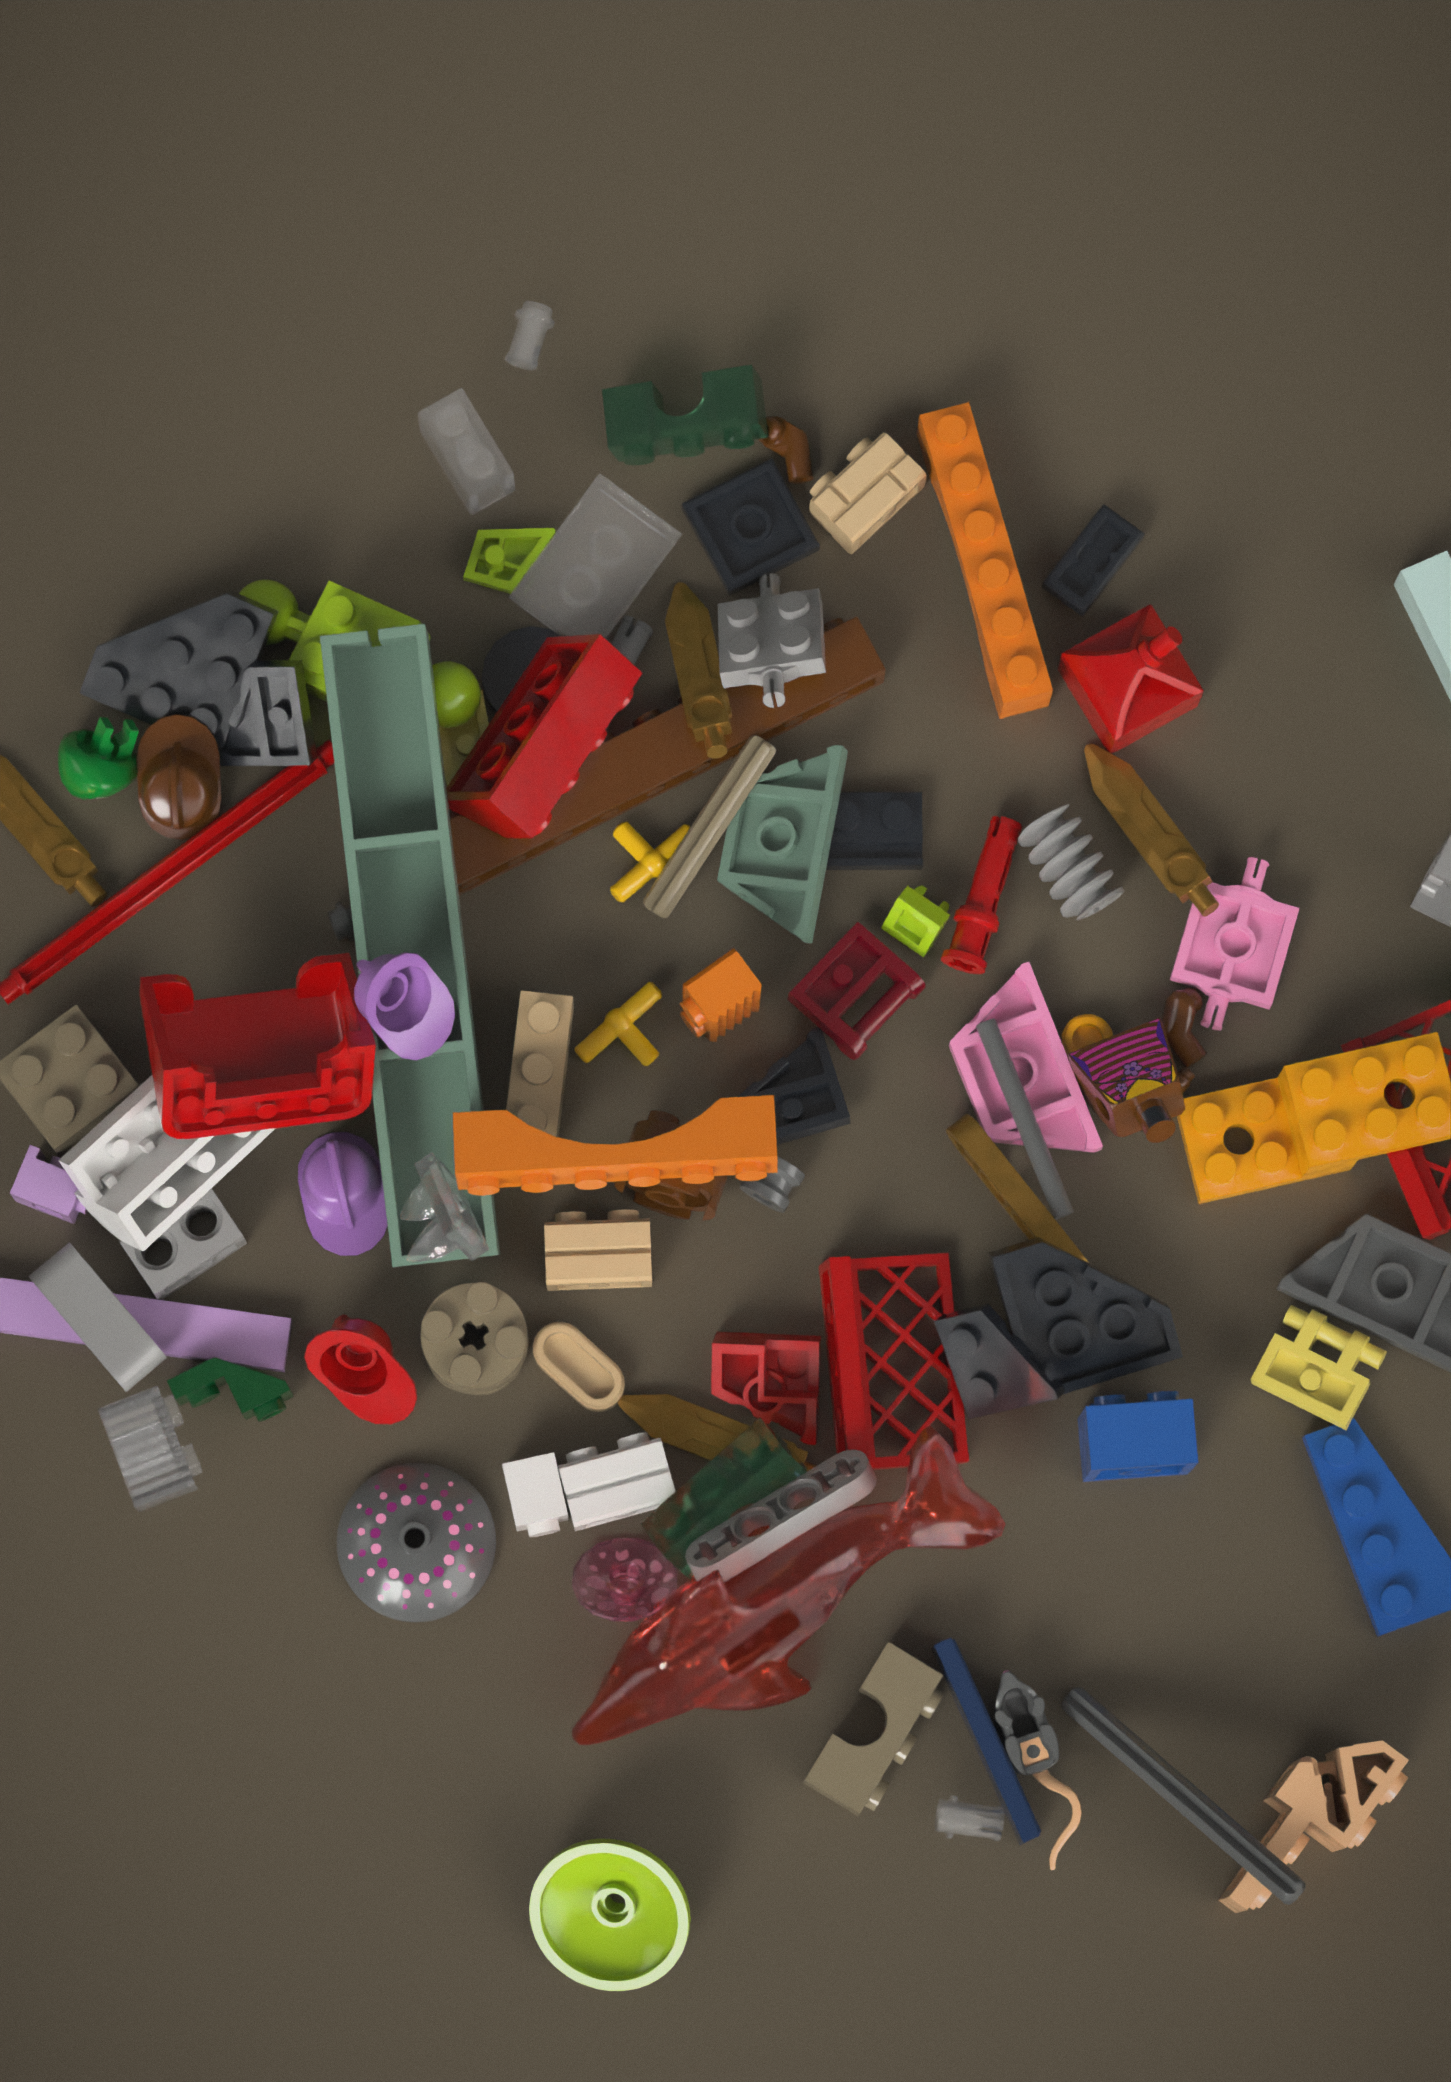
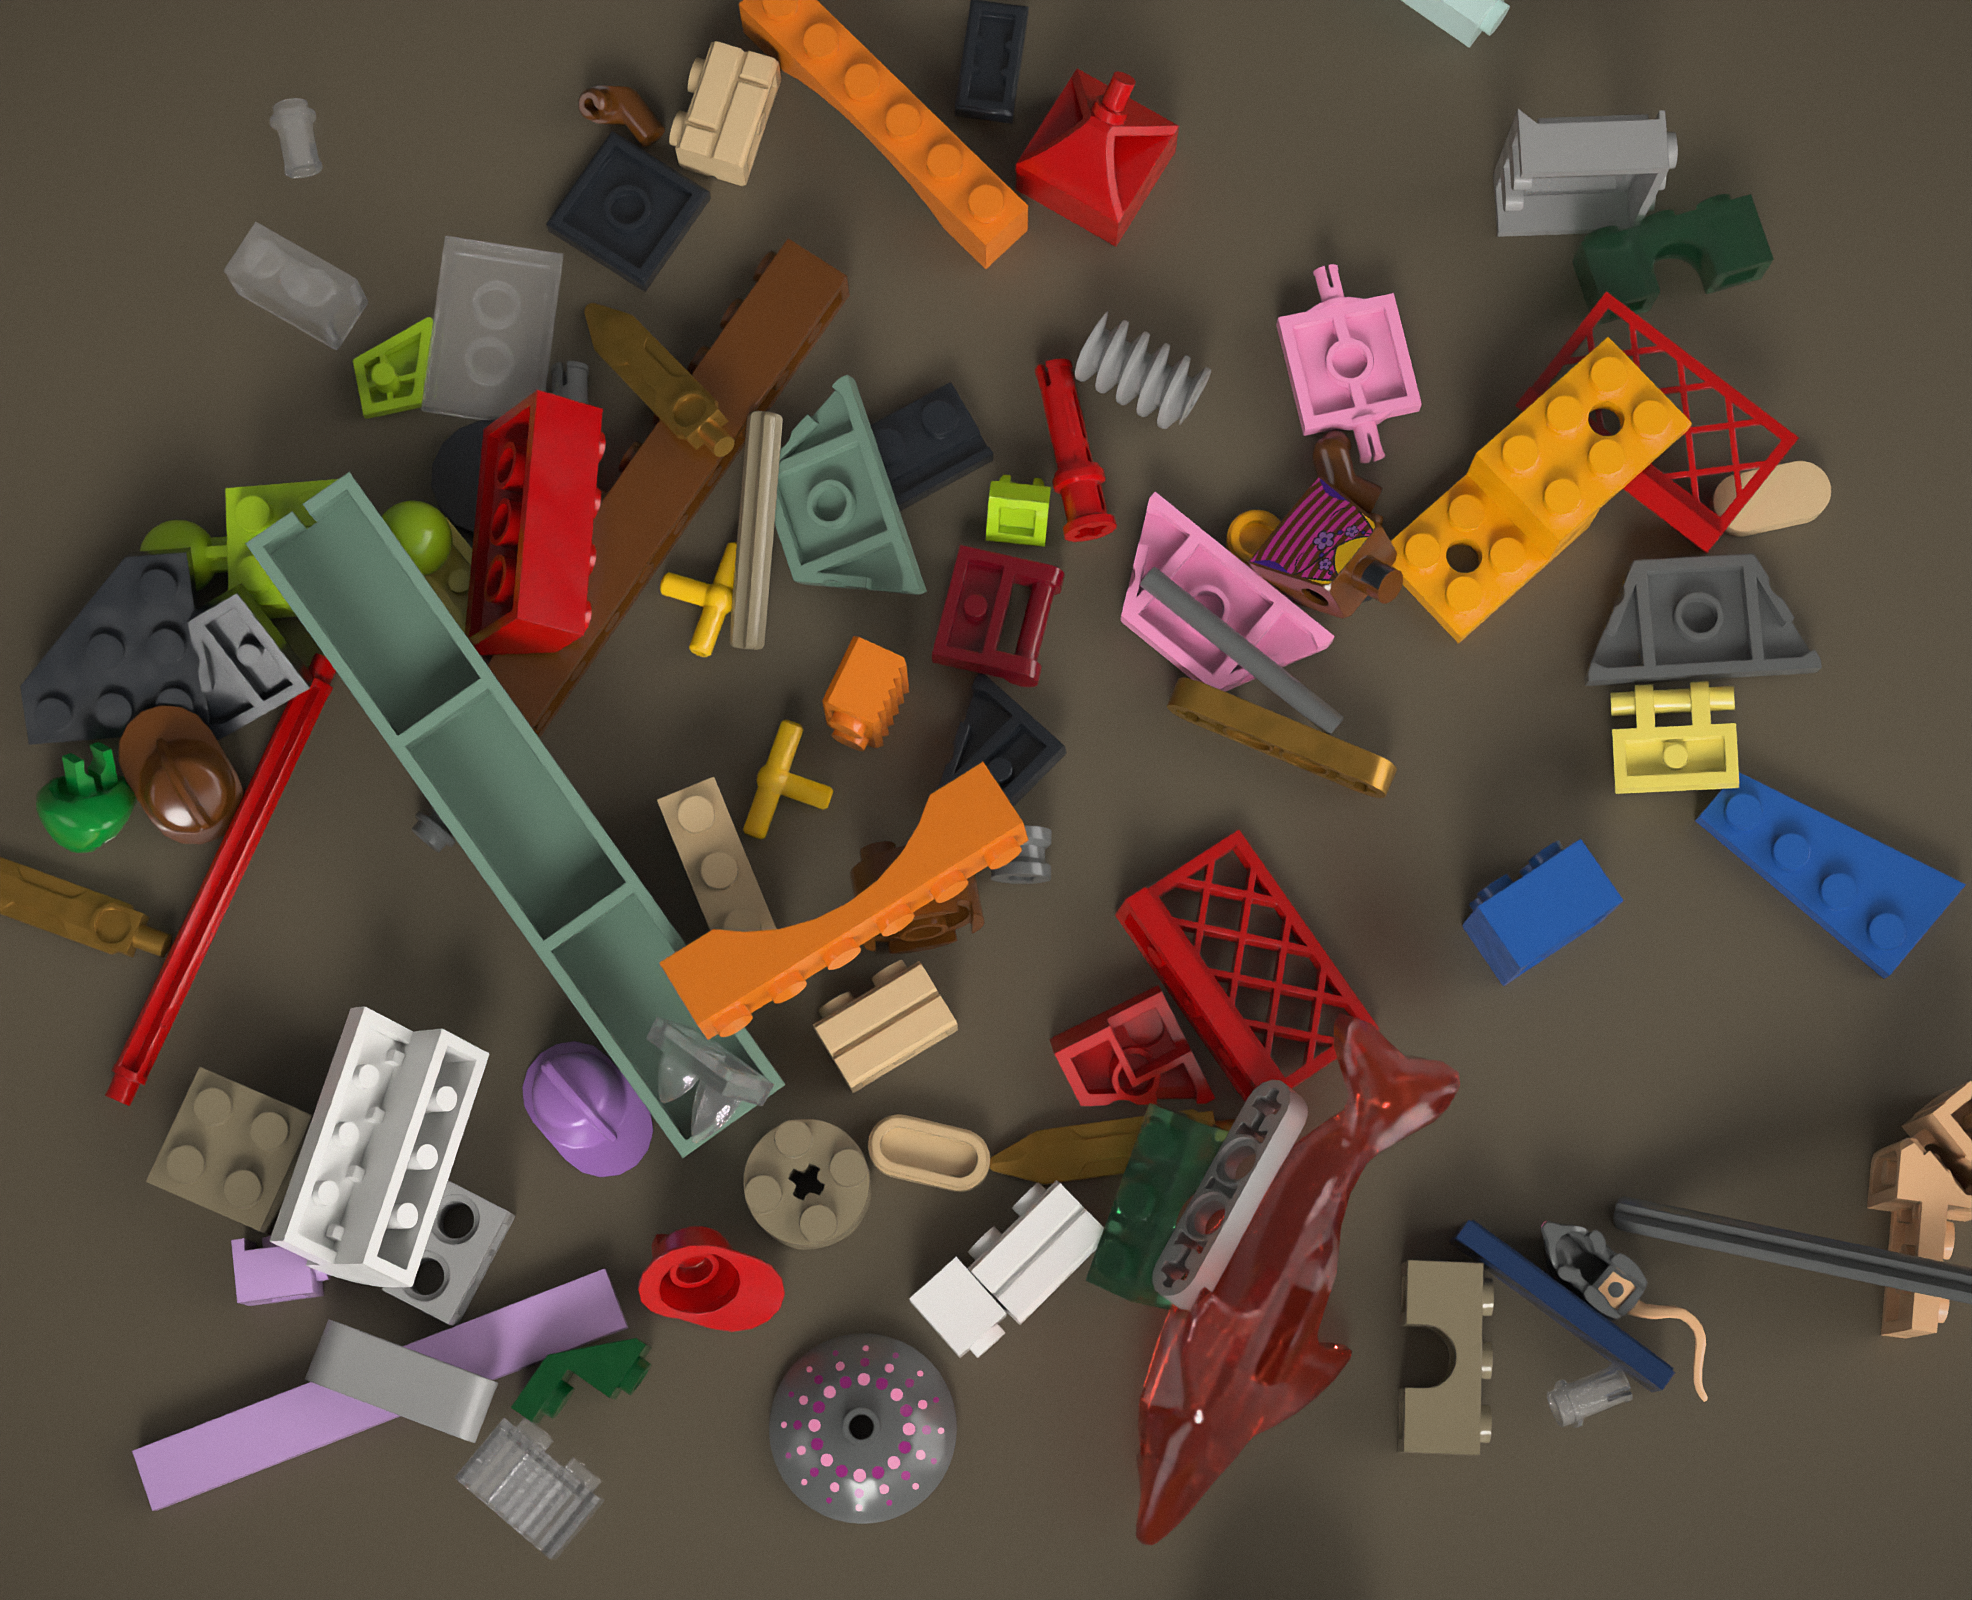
camera: 25 degrees left, 0 degrees up
(259, 1054) = (422, 1013): red windscreen -> none
(405, 1004) = (545, 876): medium lavender piece -> none
(624, 1579) = (1087, 1334): clear pink dish -> none
(727, 415) = (543, 109): clear green arch -> none
(771, 639) = (714, 306): light grey plate -> none
(991, 1363) = (1350, 916): black wing -> none
(1080, 1317) = (1409, 826): black plate -> none
(1150, 828) = (1200, 295): pearl gold piece -> none

